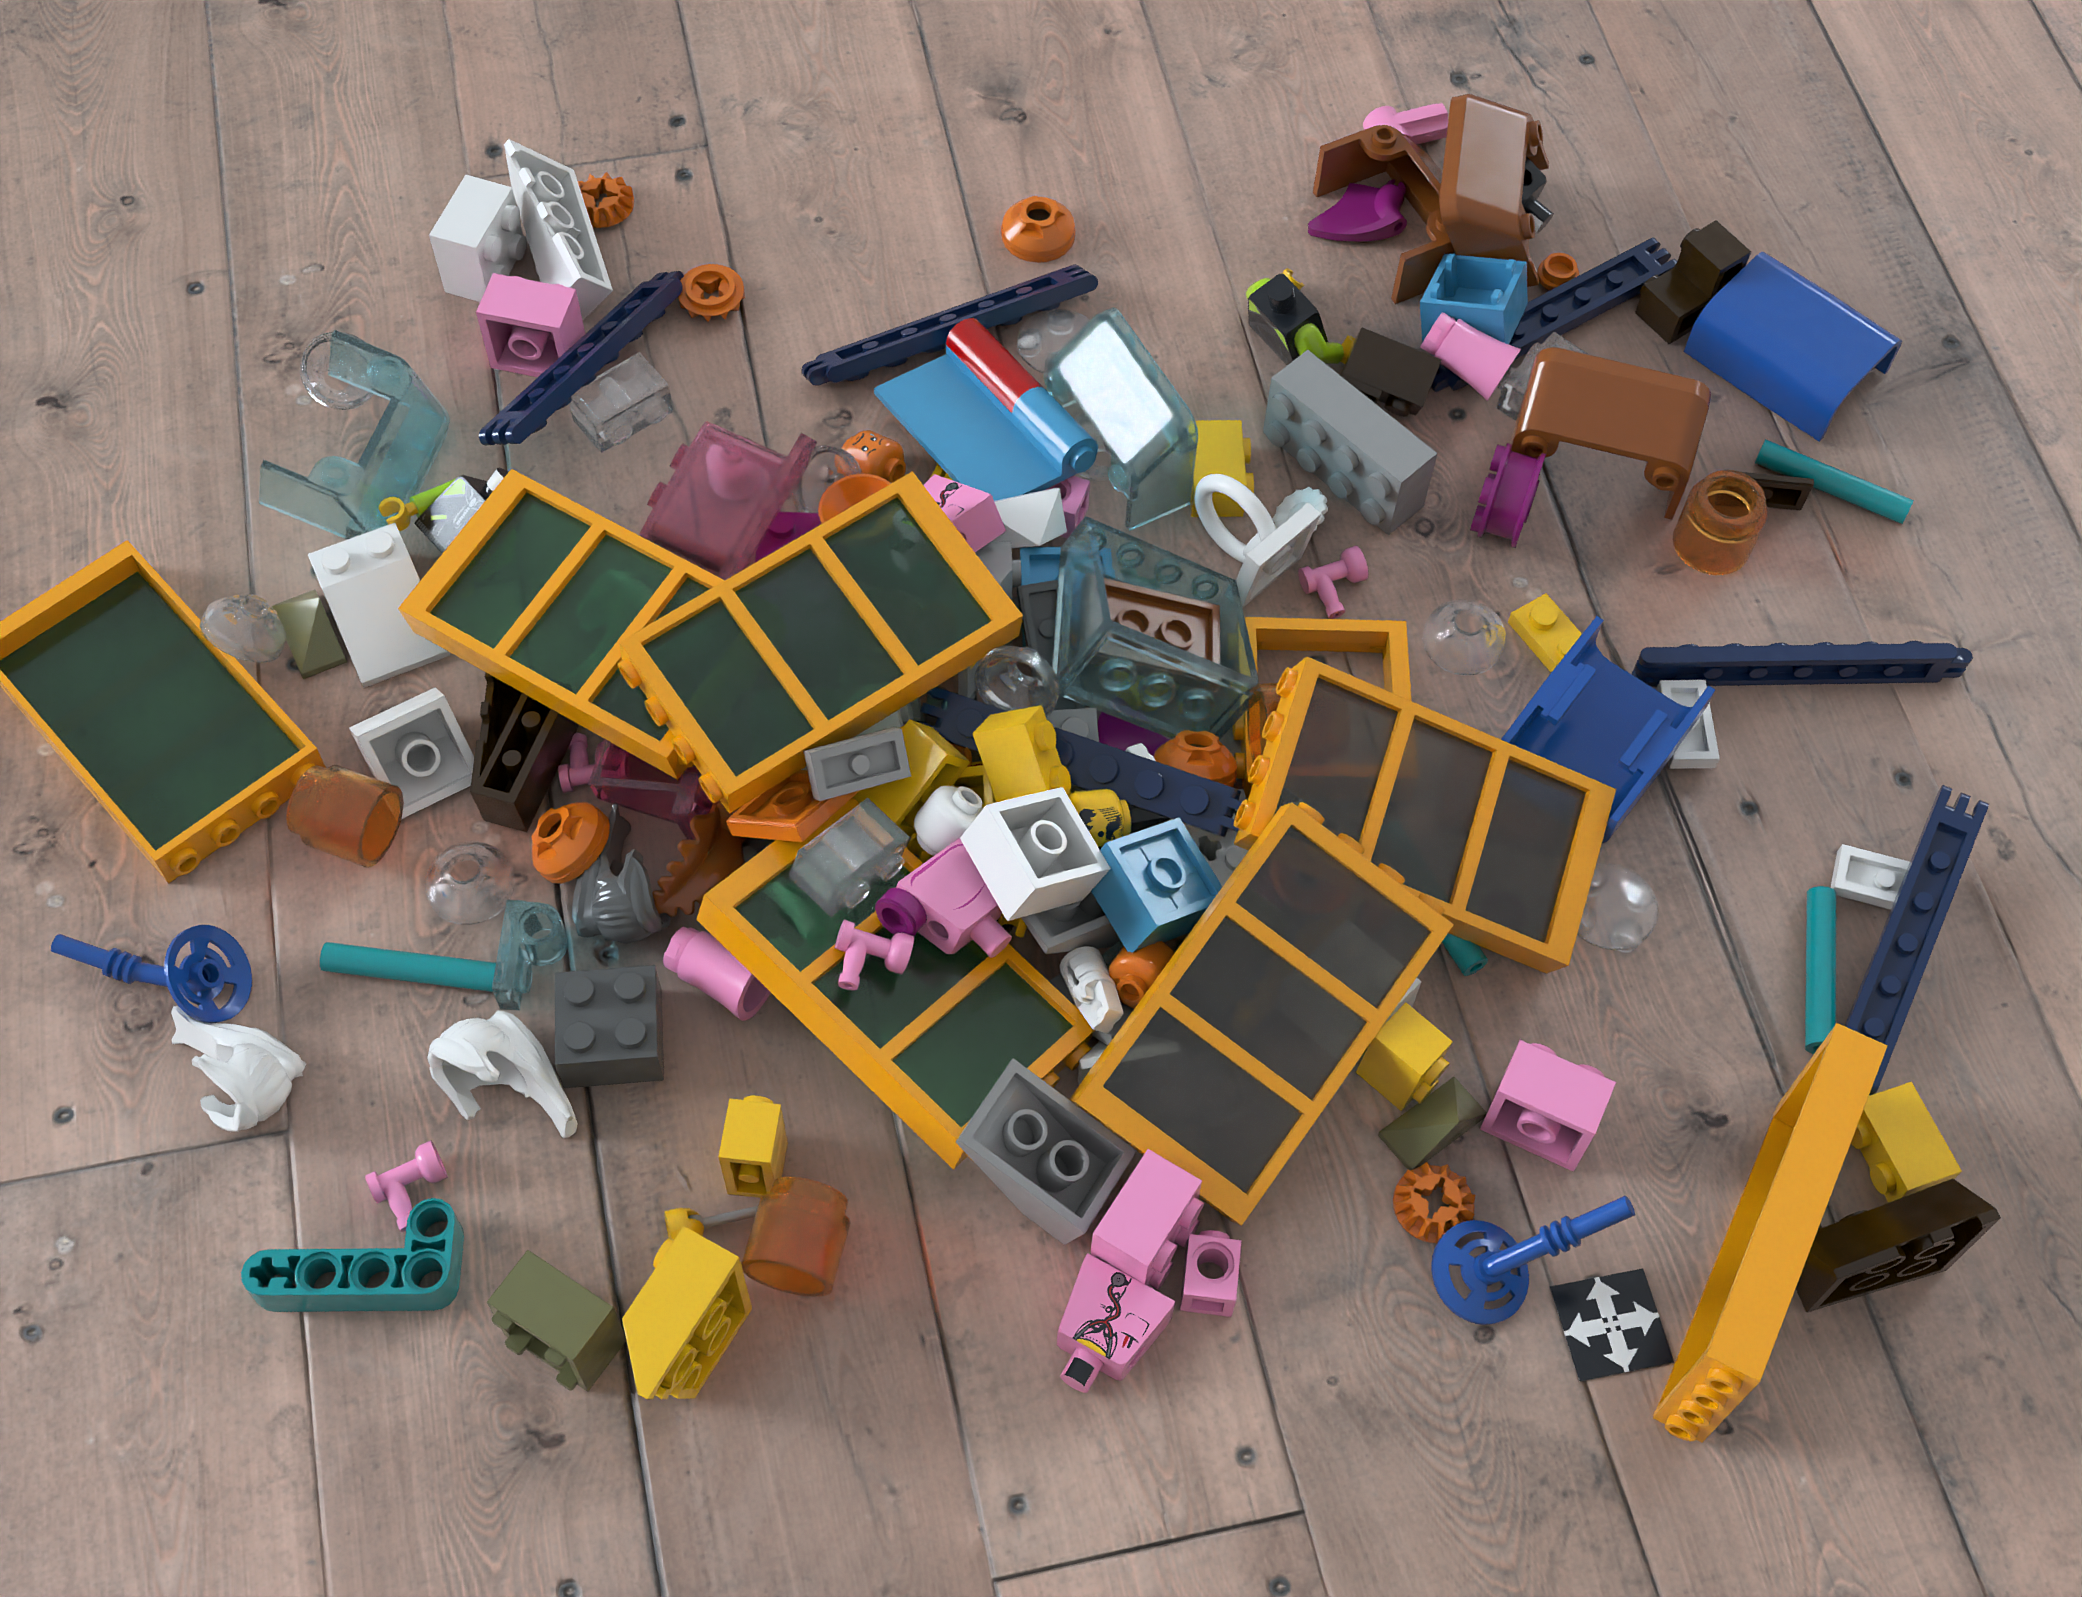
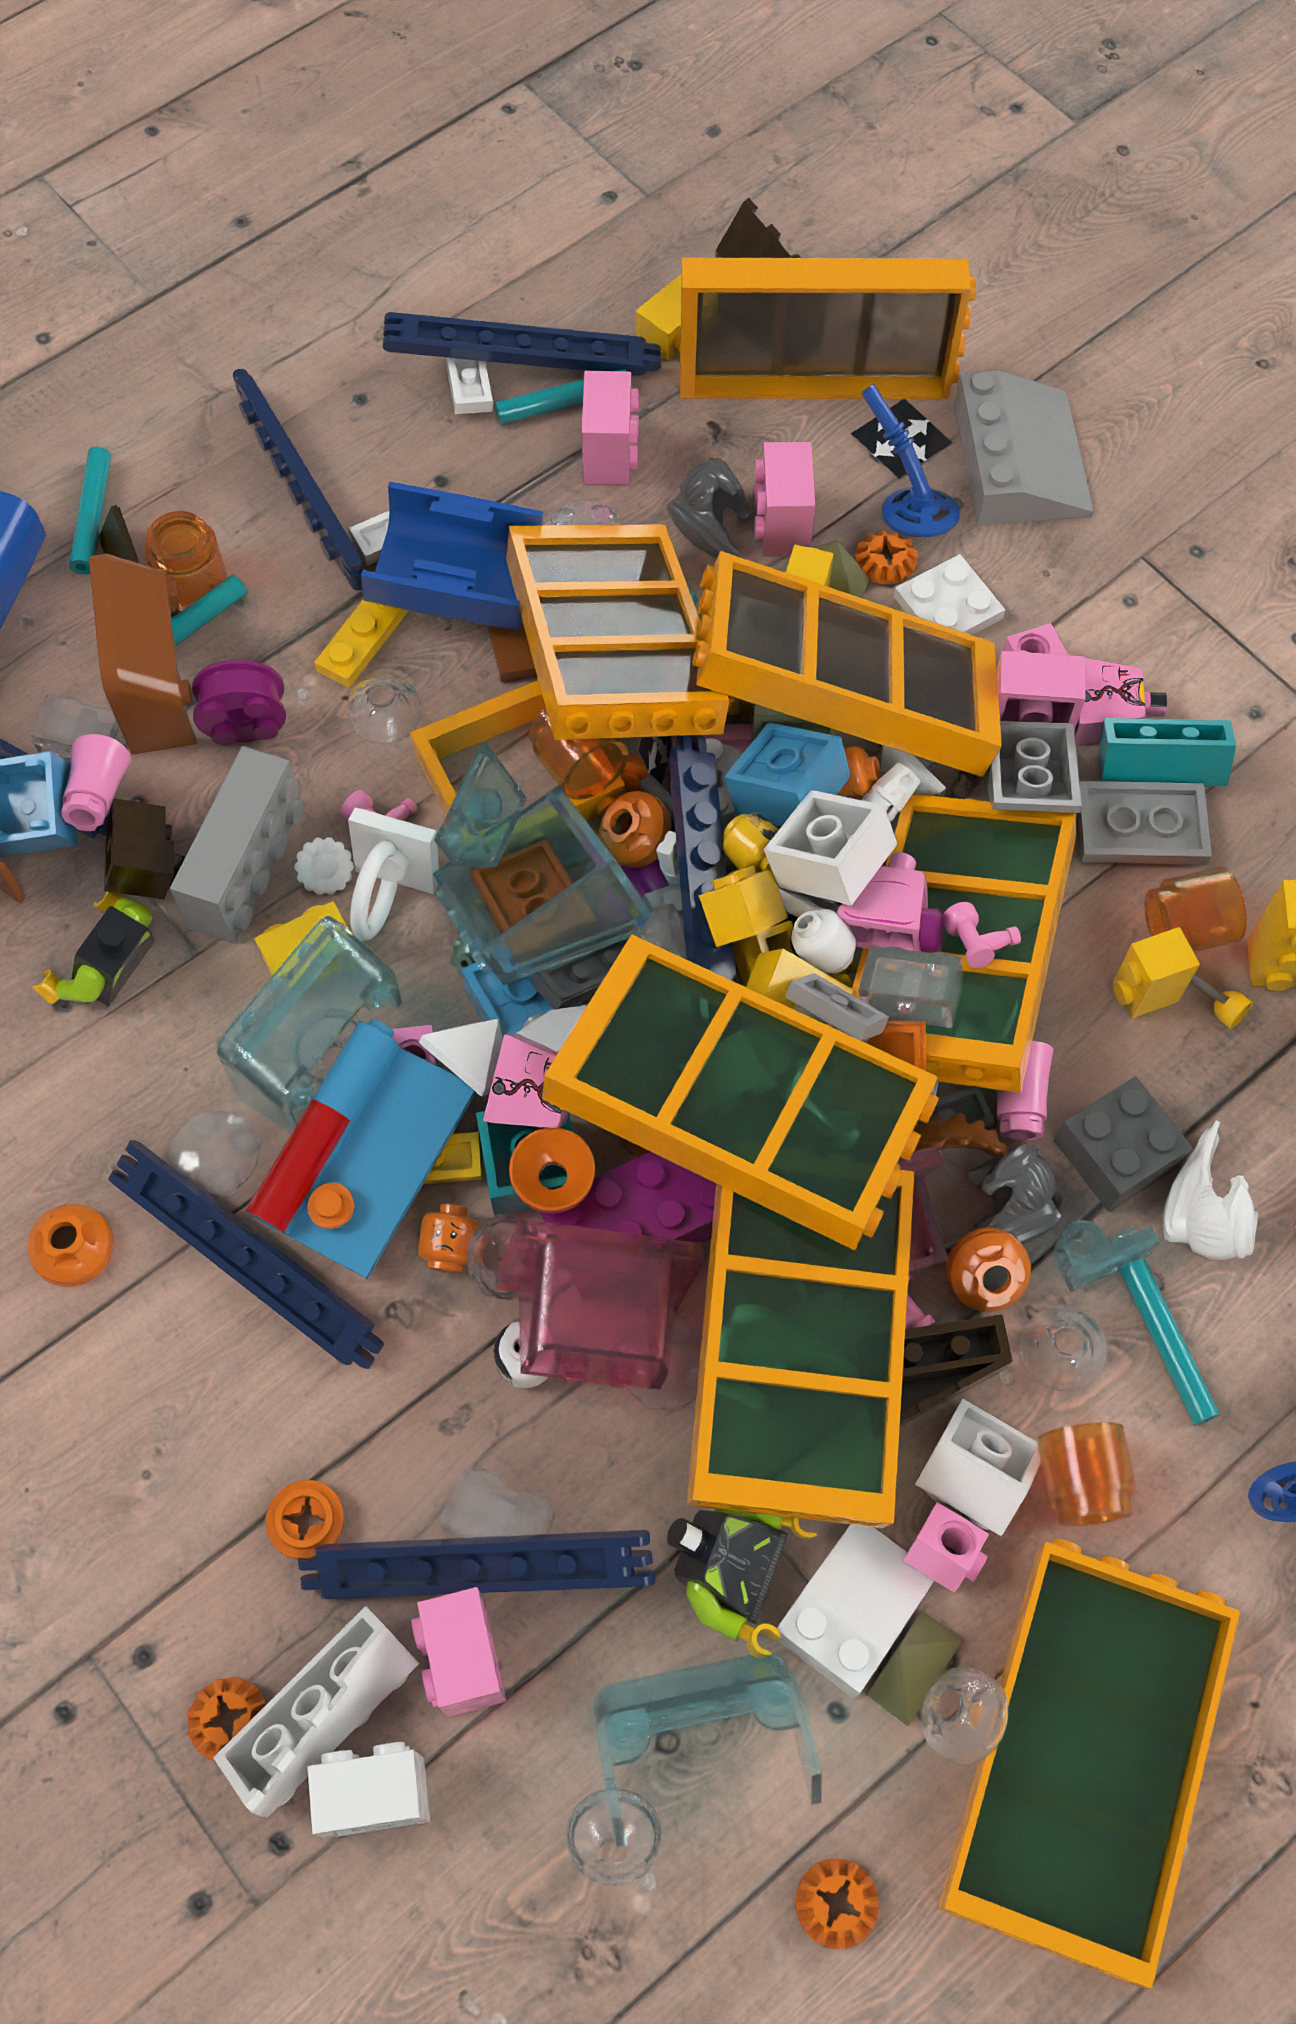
camera: 115 degrees left, 5 degrees up
(186, 515) = (813, 1911): none -> orange gear
(377, 667) = (937, 1563): none -> bright pink brick
(941, 1271) = (1143, 823): none -> light grey plate
(946, 379) = (331, 1206): none -> orange plate
(1006, 1333) = (1166, 751): none -> teal brick
(1258, 605) = (481, 813): none -> clear light blue slope
(1337, 1237) = (951, 597): none -> white plate
(1525, 1445) = (1019, 449): none -> light grey slope
(1575, 1024) = (701, 506): none -> dark grey hair
(1650, 515) = (207, 608): none -> teal piece
(1735, 968) = (609, 427): none -> bright pink brick

